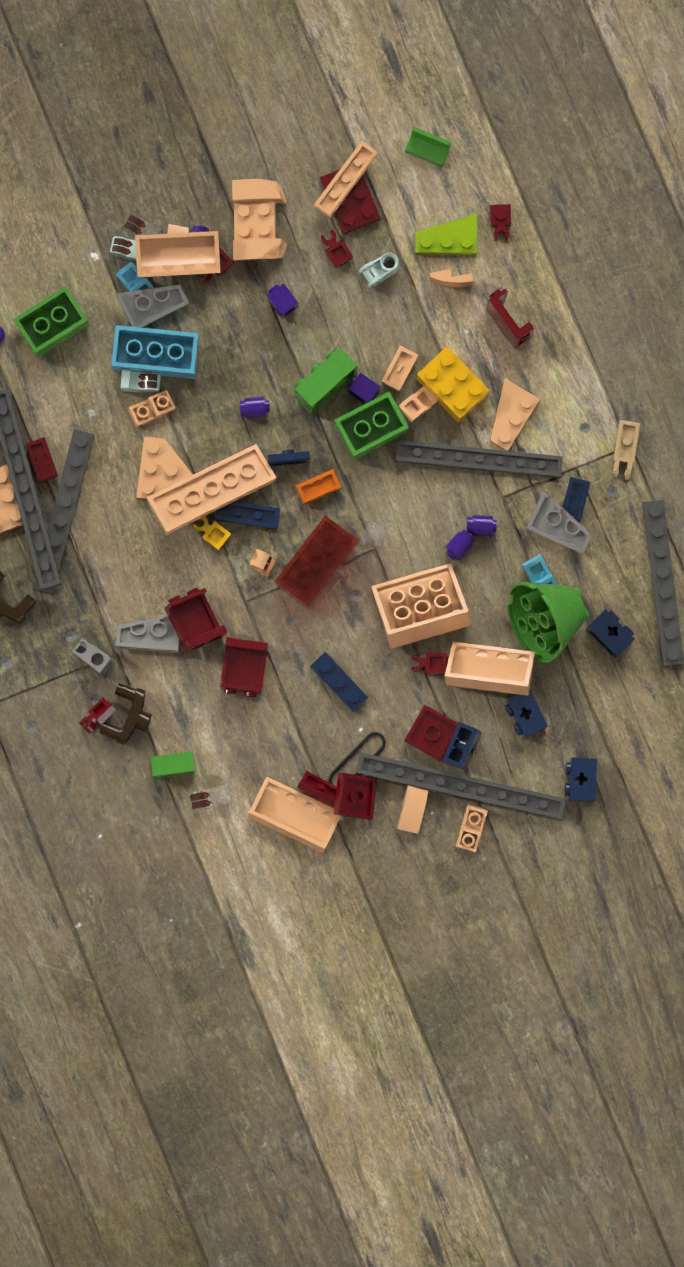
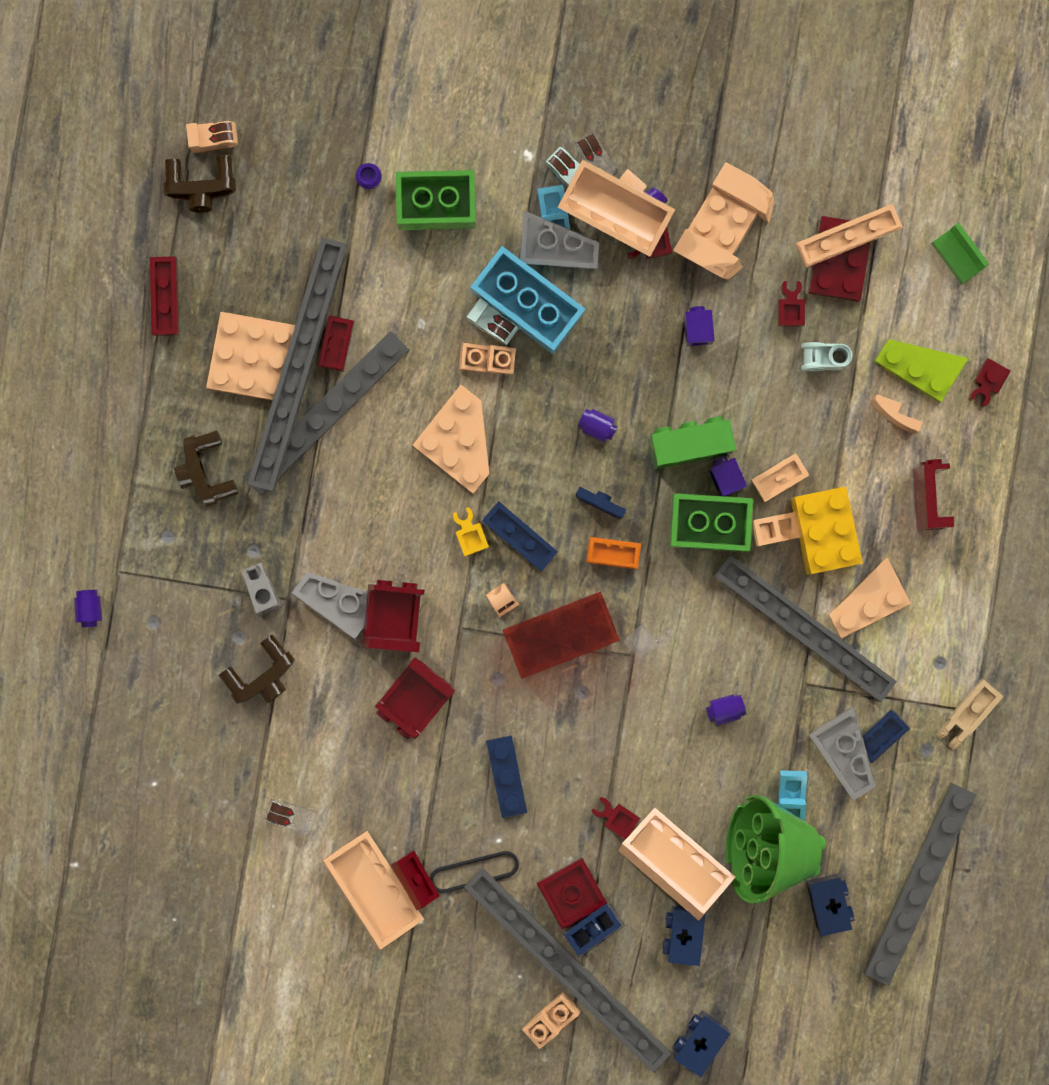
camera: 35 degrees right, 5 degrees up
(98, 714) = (230, 655): dark red plate -> none
(172, 764) = (275, 757): bright green panel -> none
(211, 489) = (496, 487): light nougat plate -> none
(355, 796) = (447, 912): dark red plate -> none
(413, 809) = (500, 963): light nougat slope -> none
(421, 606) = (644, 749): light nougat slope -> none
(481, 525) = (762, 702): dark purple brick -> none

